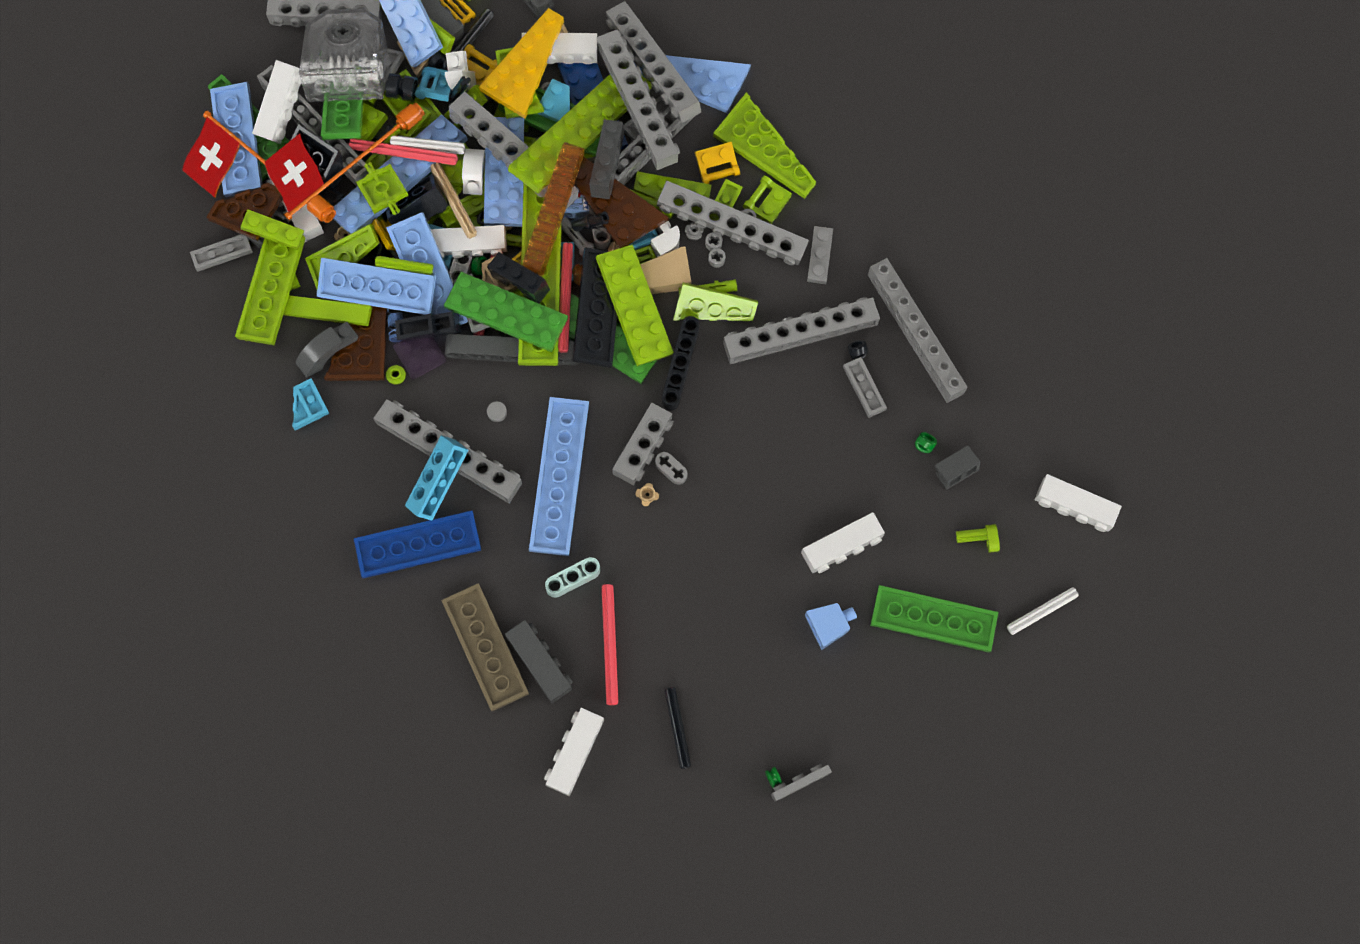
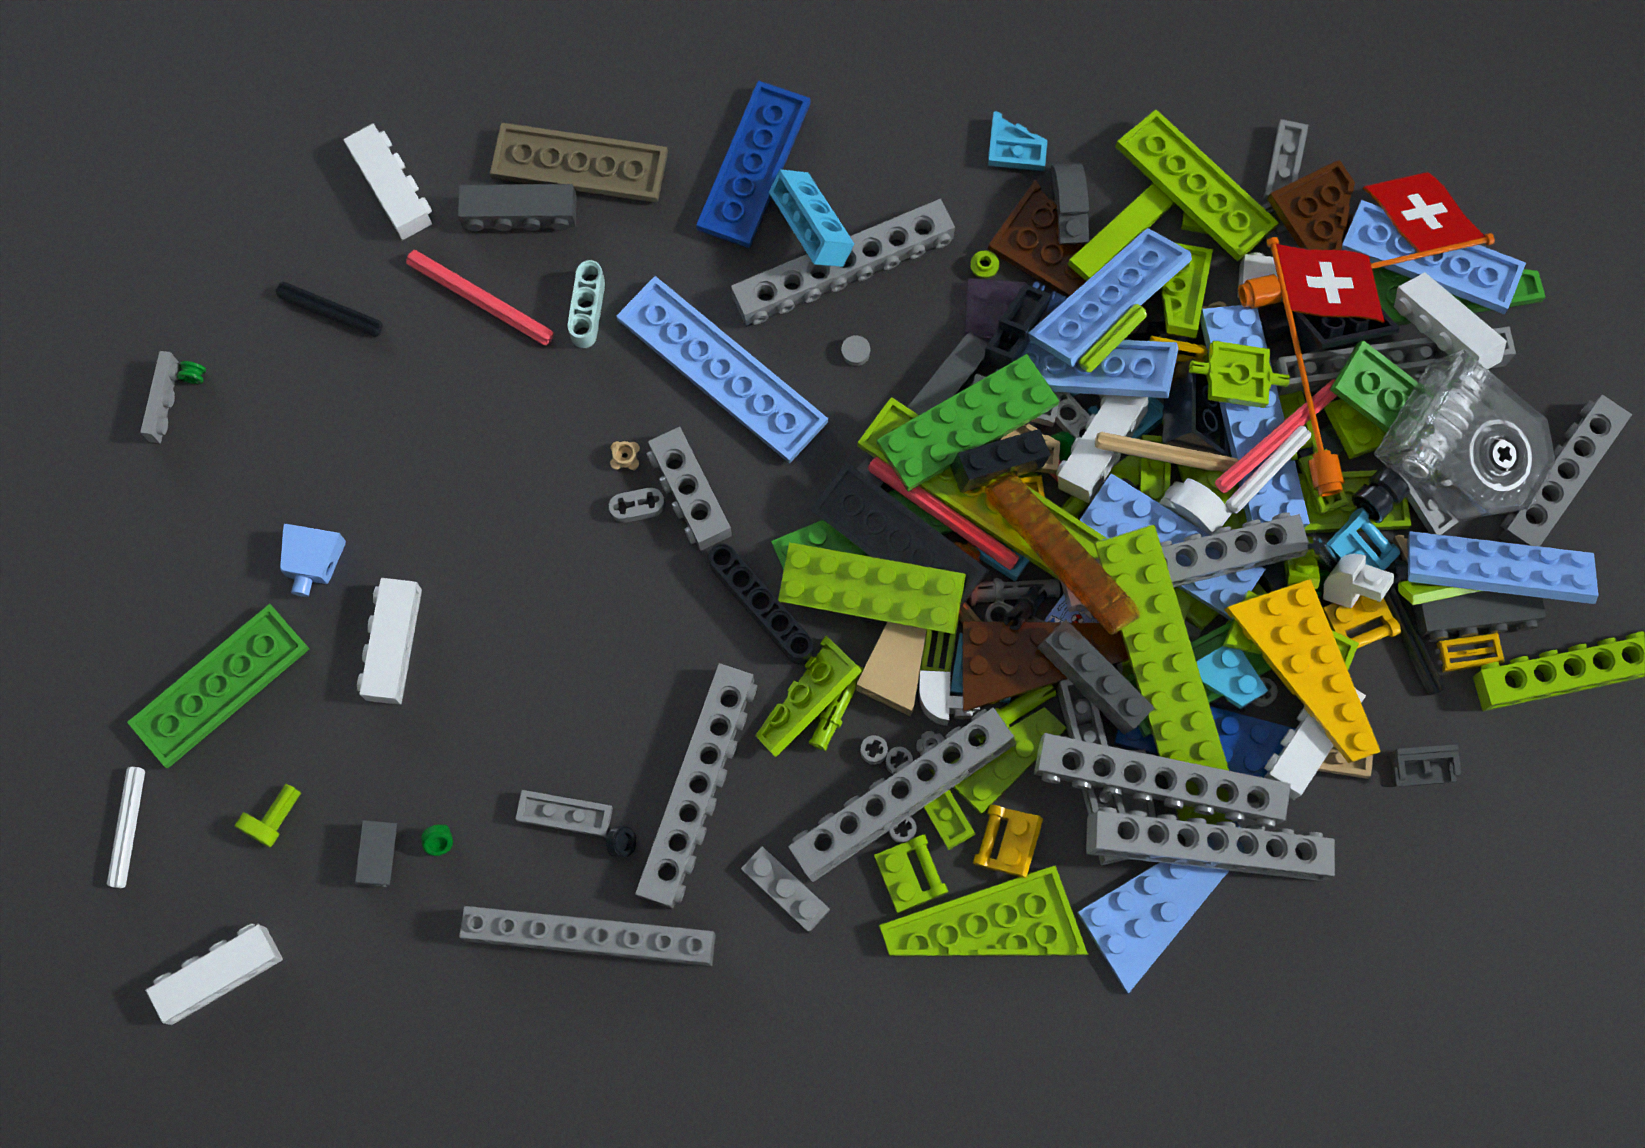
camera: 130 degrees right, 0 degrees up
(272, 229) = (1267, 217): lime plate -> none

